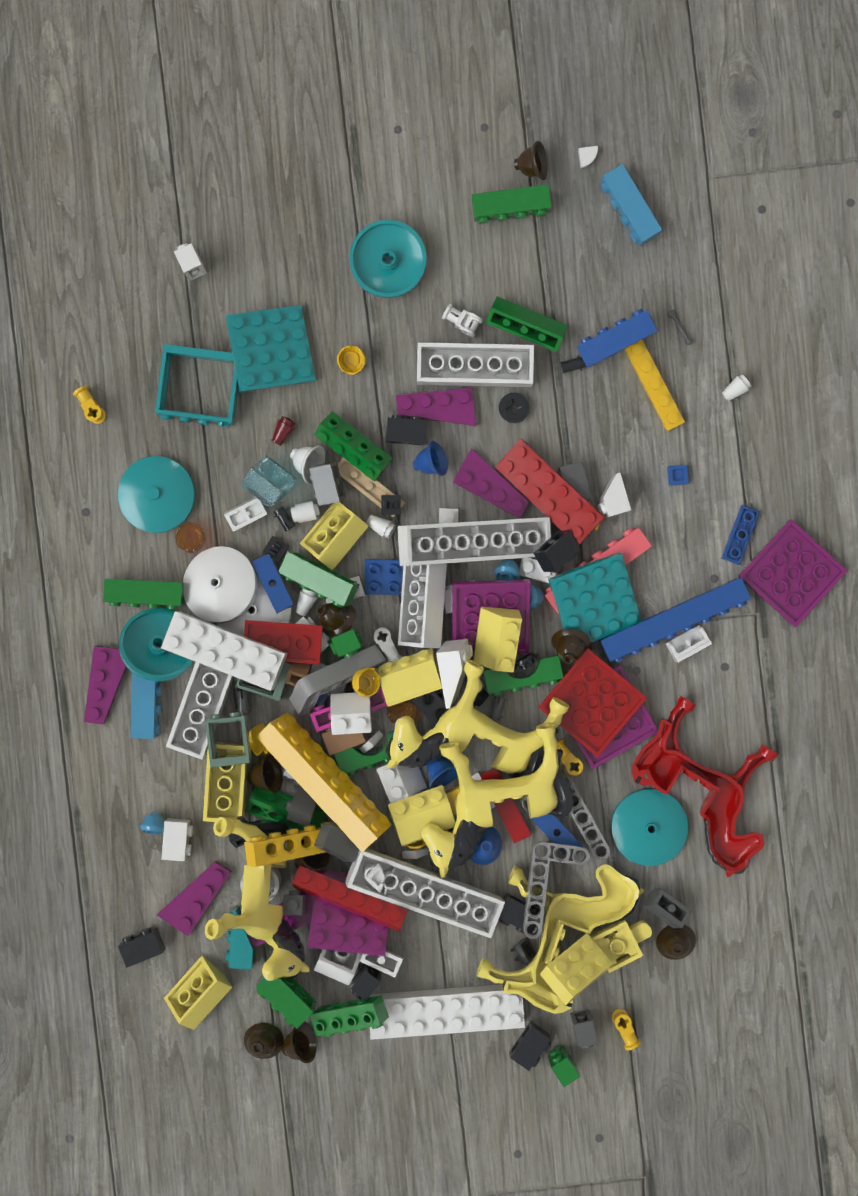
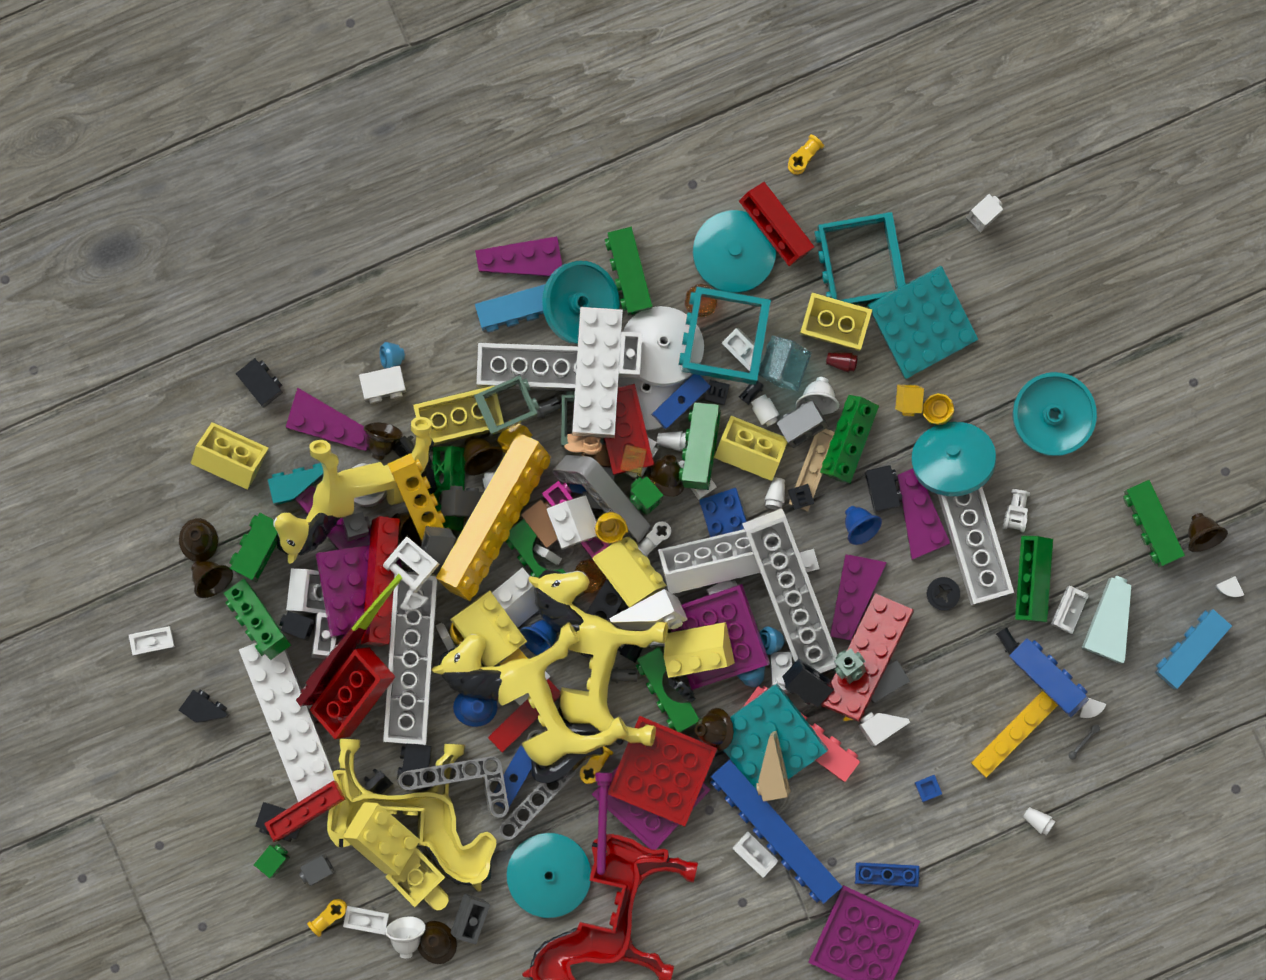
camera: 65 degrees right, 5 degrees down
(142, 449) = (776, 223): none -> red brick
(217, 616) = (630, 354): none -> white brick
(218, 559) = (688, 338): none -> teal window
(224, 856) = (381, 438): none -> dark brown hat
(246, 424) = (835, 321): none -> light yellow slope
(285, 681) = (588, 445): none -> light nougat plate
(312, 643) = (633, 459): none -> clear yellow panel
(335, 382) = (909, 399): none -> yellow brick
(338, 1109) = (151, 640): none -> white plate
(340, 865) = (416, 559): none -> white plate
(400, 360) = (953, 459): none -> teal dish
(410, 1085) = (201, 709): none -> black slope
(416, 967) = (340, 653): none -> dark red plate
(440, 953) = (352, 693): none -> red brick
(530, 1027) = (304, 811): none -> red tile
(561, 509) = (849, 672): none -> sand green brick
(562, 302) = (1069, 609): none -> white hinge
(585, 270) = (1110, 623): none -> light aqua slope
(585, 756) = (603, 781): none -> magenta piece
(629, 607) = (773, 777): none -> tan slope
(638, 997) = (366, 920): none -> white plate
(655, 310) = (1091, 709): none -> white tile
(662, 968) = (405, 935): none -> white hat

